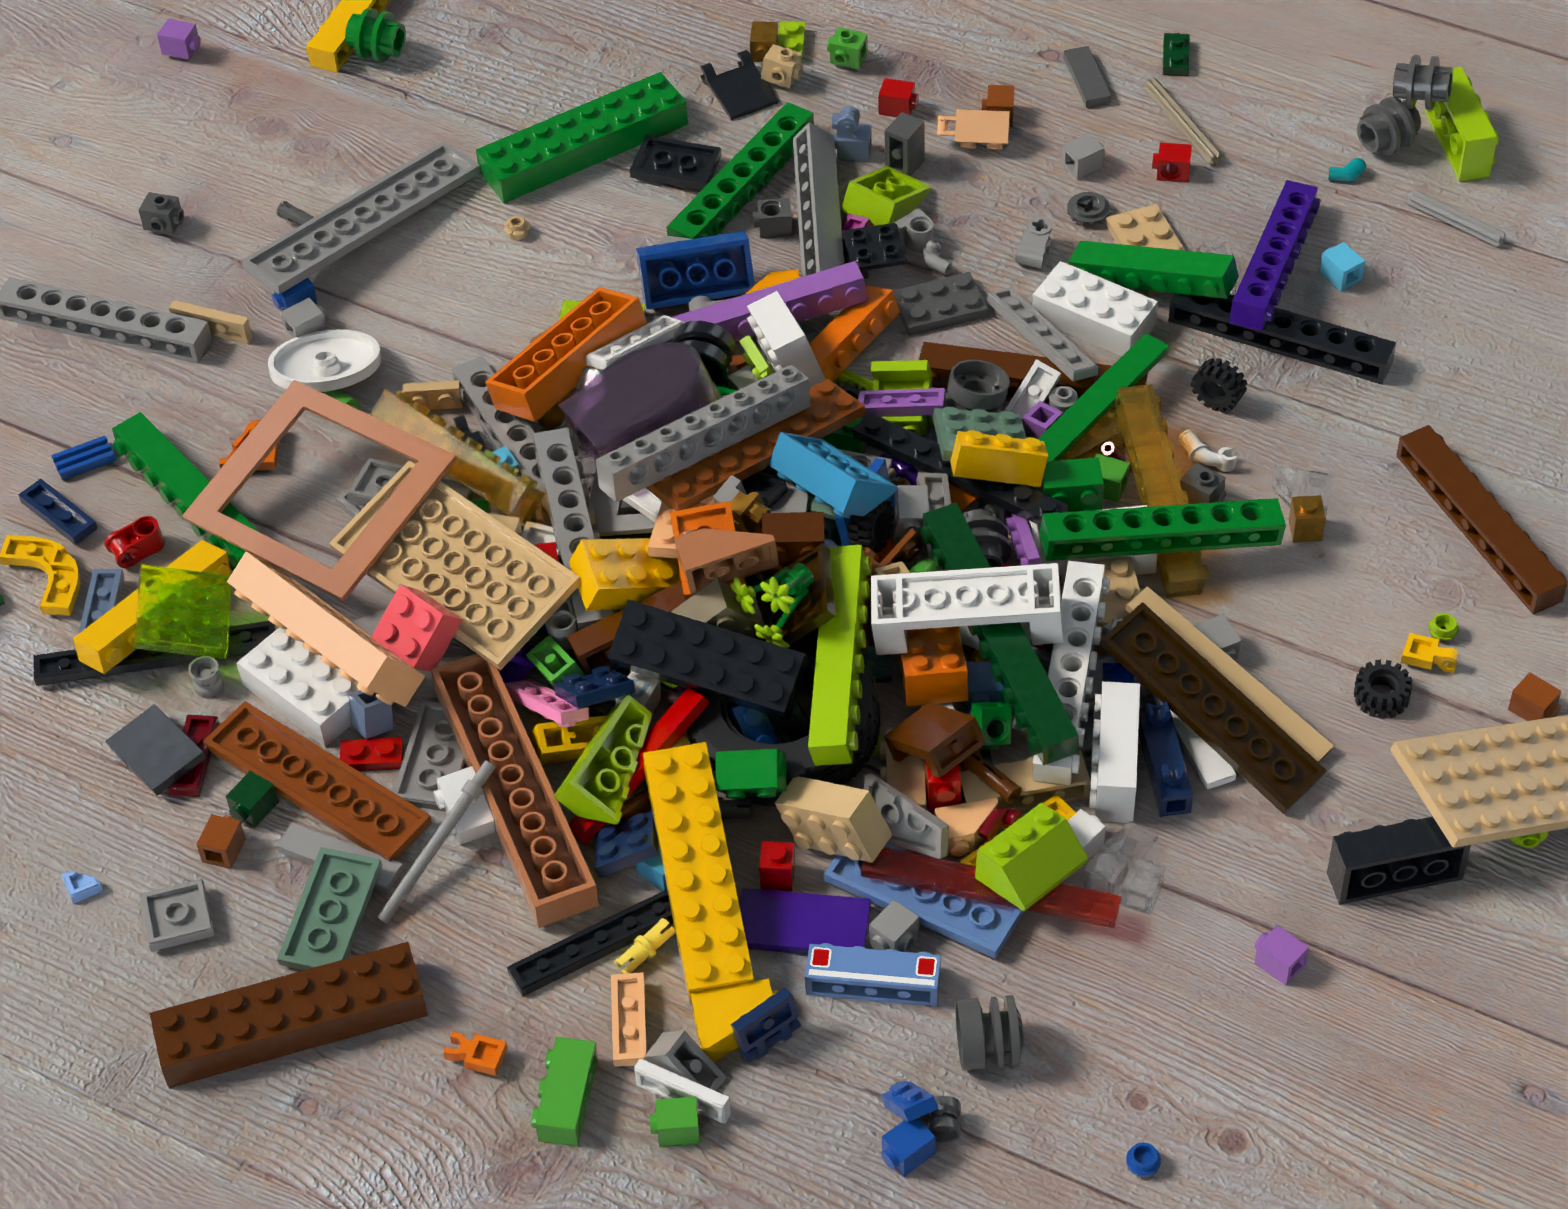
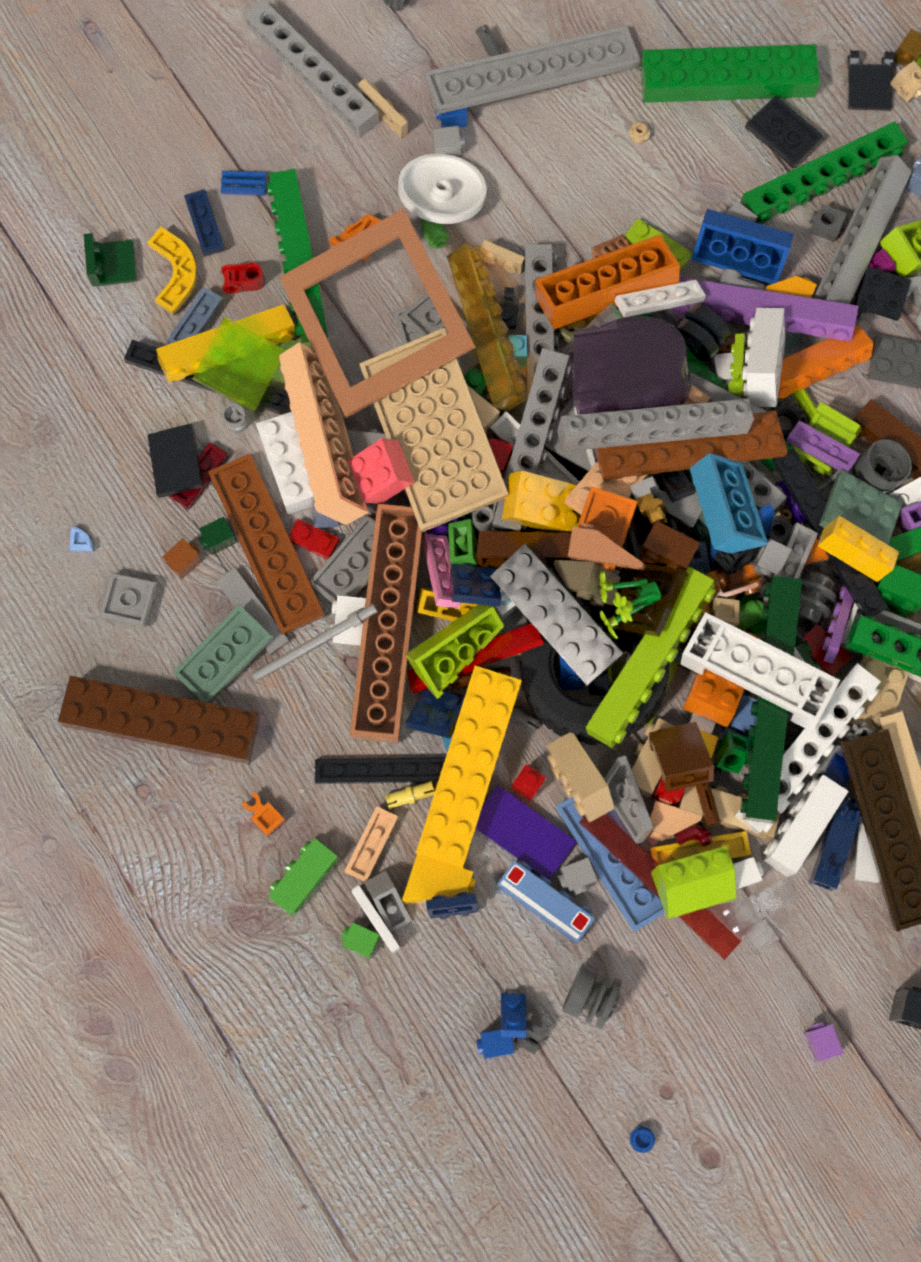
camera: 25 degrees right, 25 degrees up
(751, 772) = (540, 717): green brick -> none

